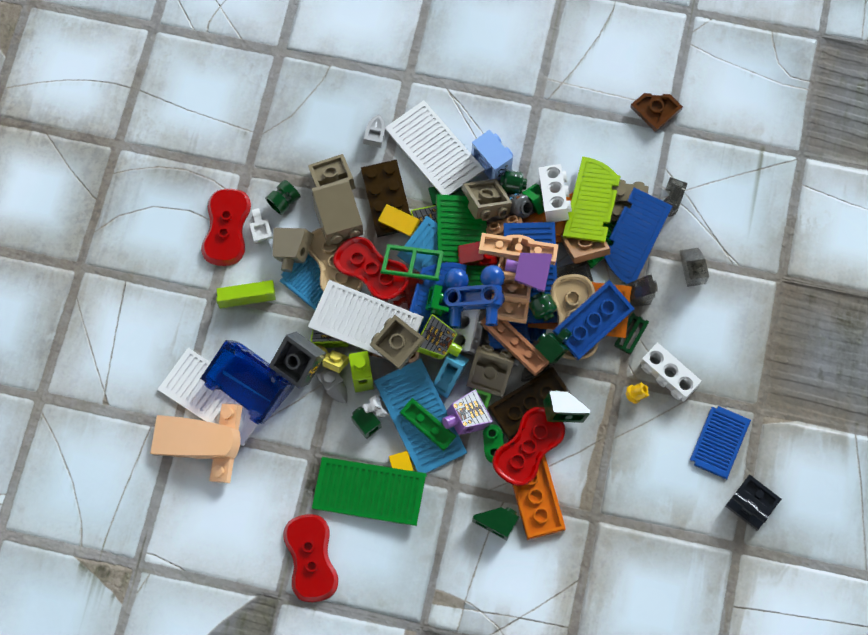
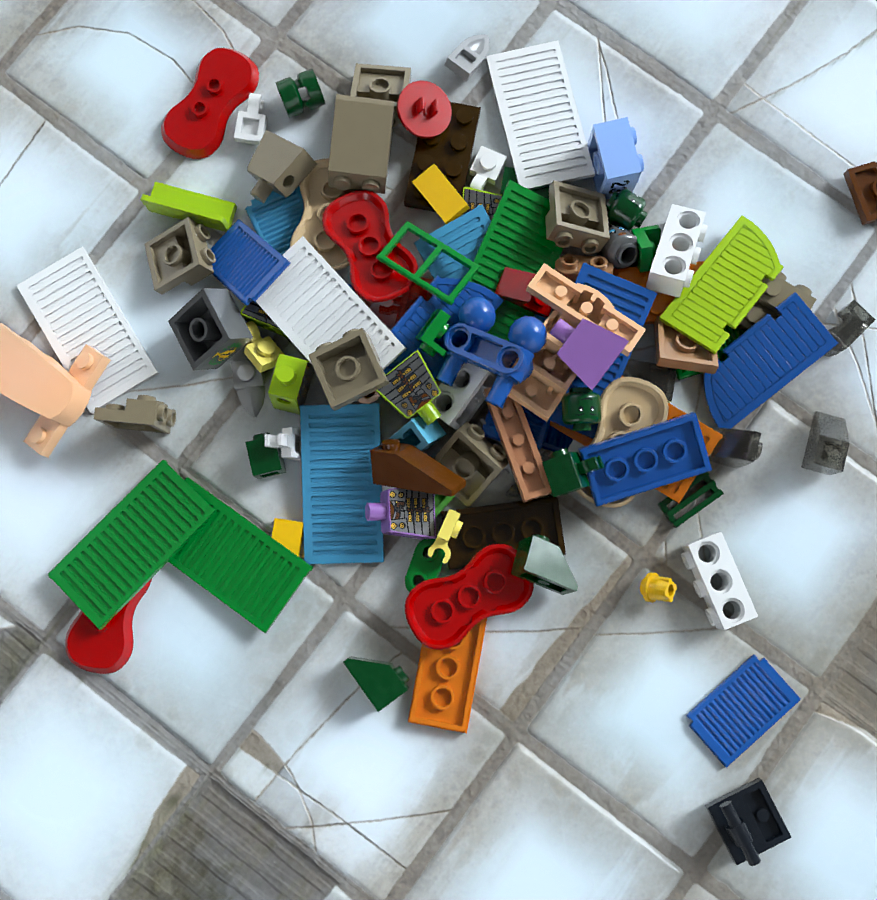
camera: 30 degrees right, 10 degrees up
(247, 380) = (132, 325): clear blue windscreen -> none
(255, 325) = (180, 256): none -> dark tan plate
(283, 429) = (138, 415): none -> dark tan plate
(298, 311) = (246, 263): none -> blue window
(308, 510) = (131, 544): none -> green window
(364, 175) = (424, 109): none -> piece
(417, 193) = (486, 168): none -> white plate
(427, 424) = (345, 499): green tile -> none
(459, 386) = (411, 469): none -> reddish brown slope
(498, 413) = (449, 528): none -> light yellow plate

